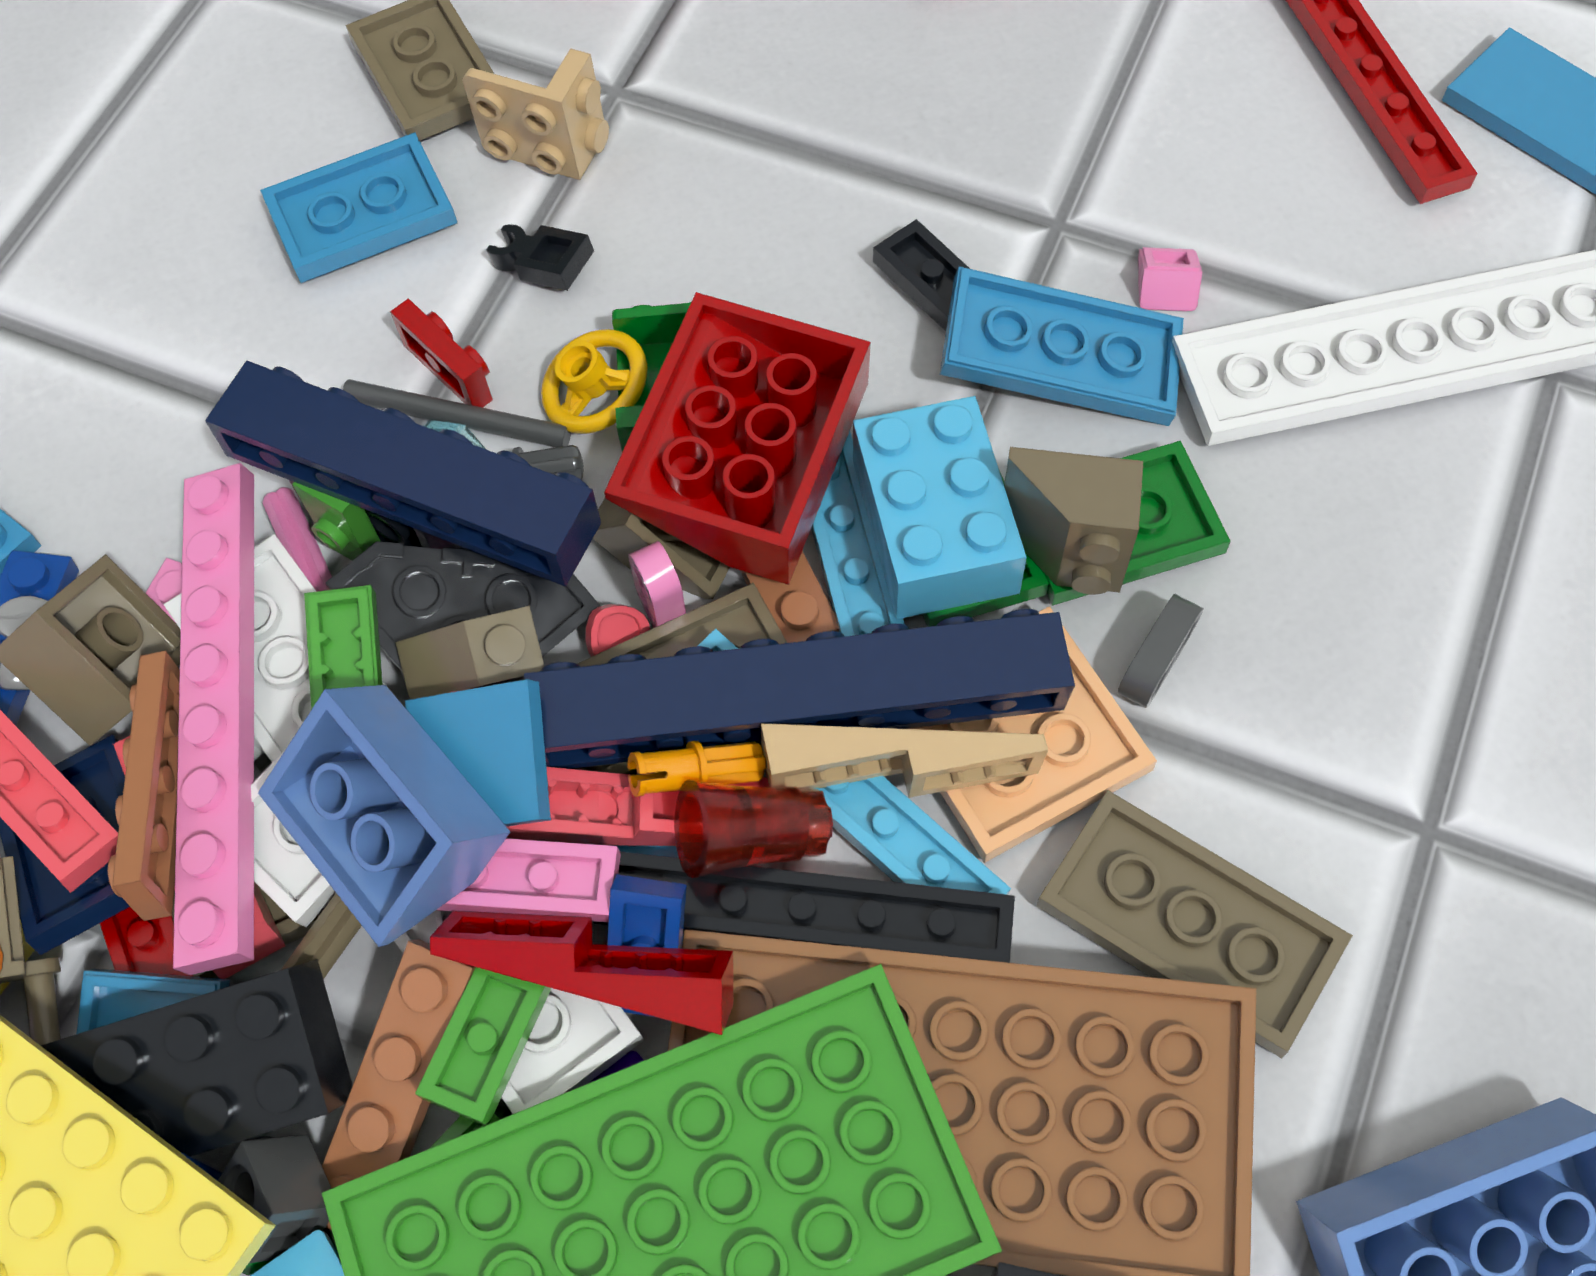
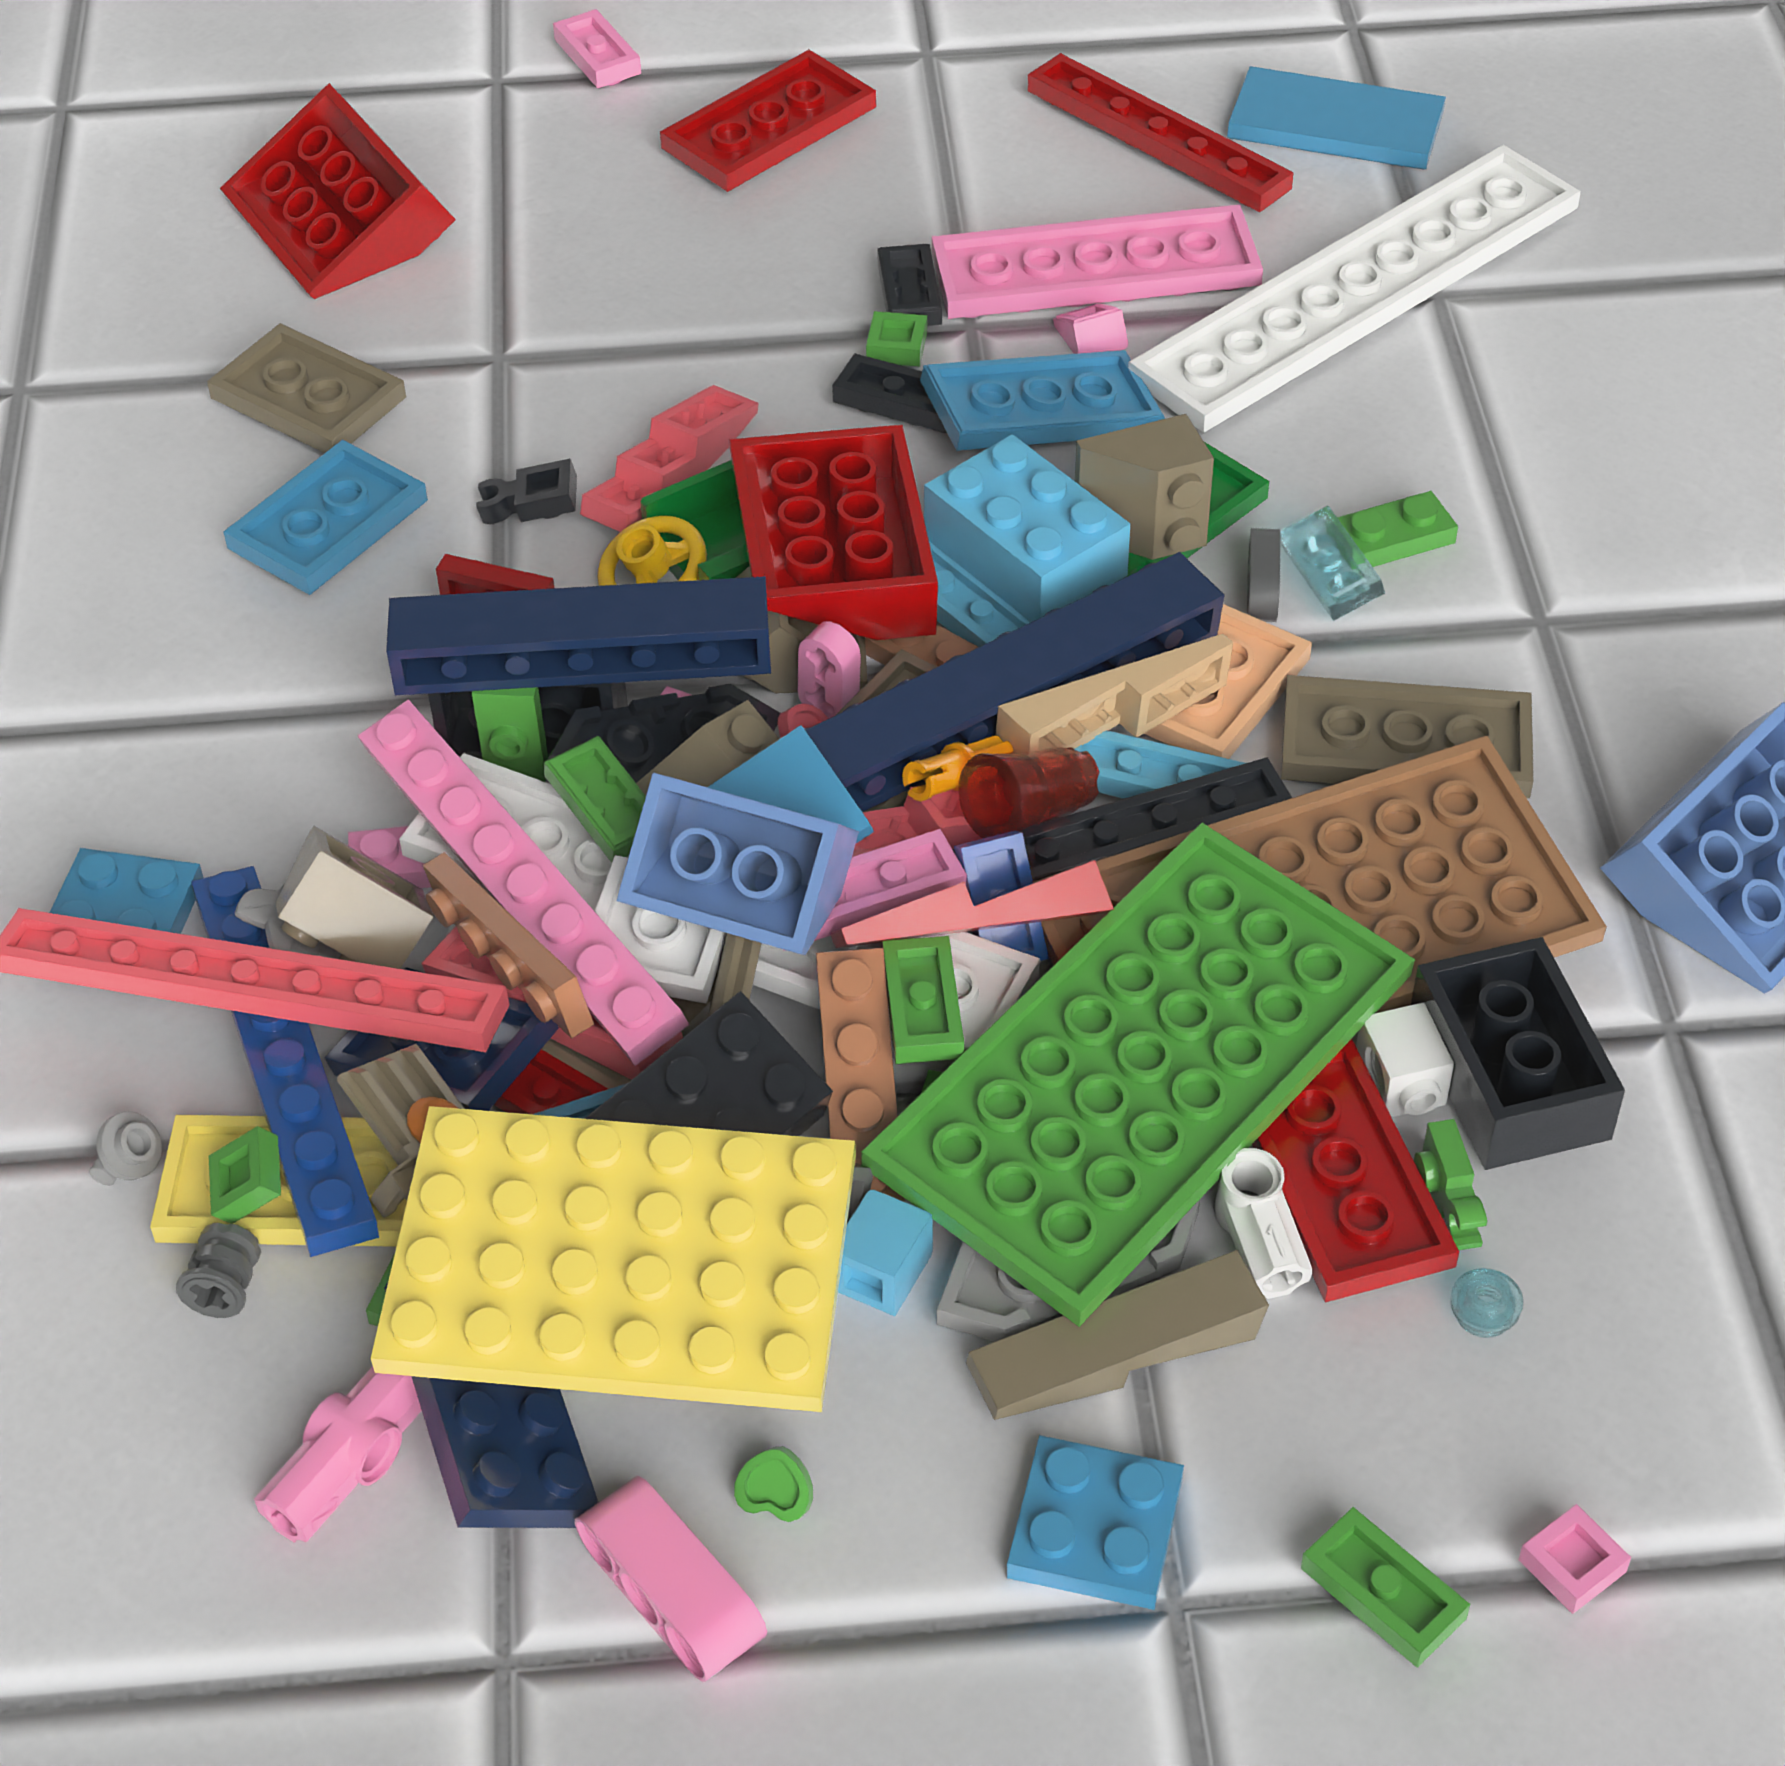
camera: 30 degrees left, 15 degrees down
(541, 126) = (460, 387): tan bracket -> none
(701, 259) = (680, 445): none -> coral slope
(970, 216) = (897, 338): none -> bright green plate
(1018, 160) = (910, 281): none -> black plate
(1219, 202) = (1095, 261): none -> bright pink plate
(1237, 668) = (1331, 563): none -> clear light blue plate
(1332, 650) = (1401, 528): none -> bright green plate

